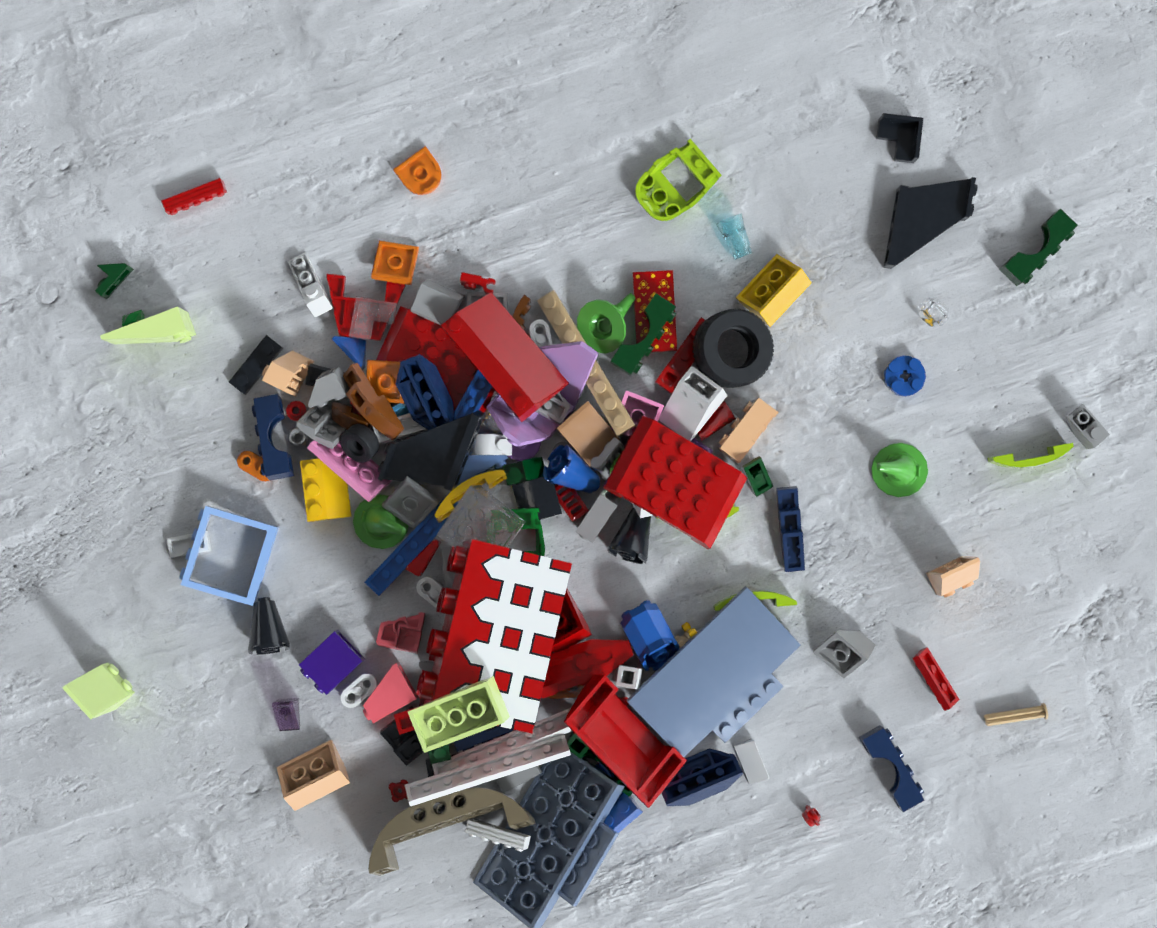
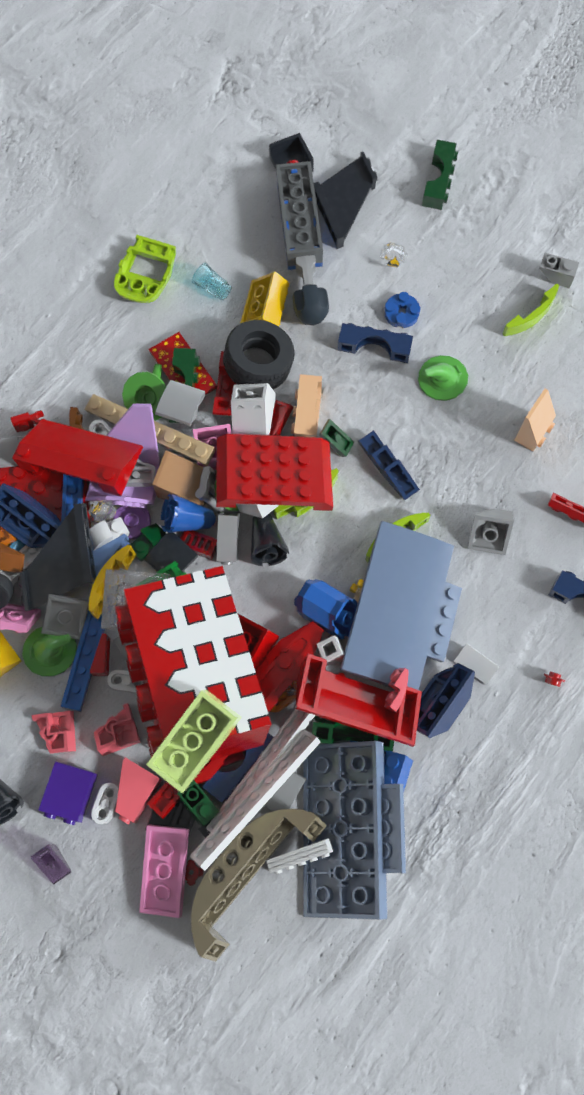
camera: 30 degrees left, 15 degrees down
(312, 775) = (104, 906): light nougat slope -> none
(350, 600) = (57, 731): none -> coral slope
(377, 778) = (164, 871): none -> bright pink plate
(629, 358) = (180, 402): none -> light grey slope
(671, 742) = (398, 682): none -> coral slope
(854, 239) = (302, 238): none -> dark grey piece
(875, 413) = (354, 337): none -> dark blue arch

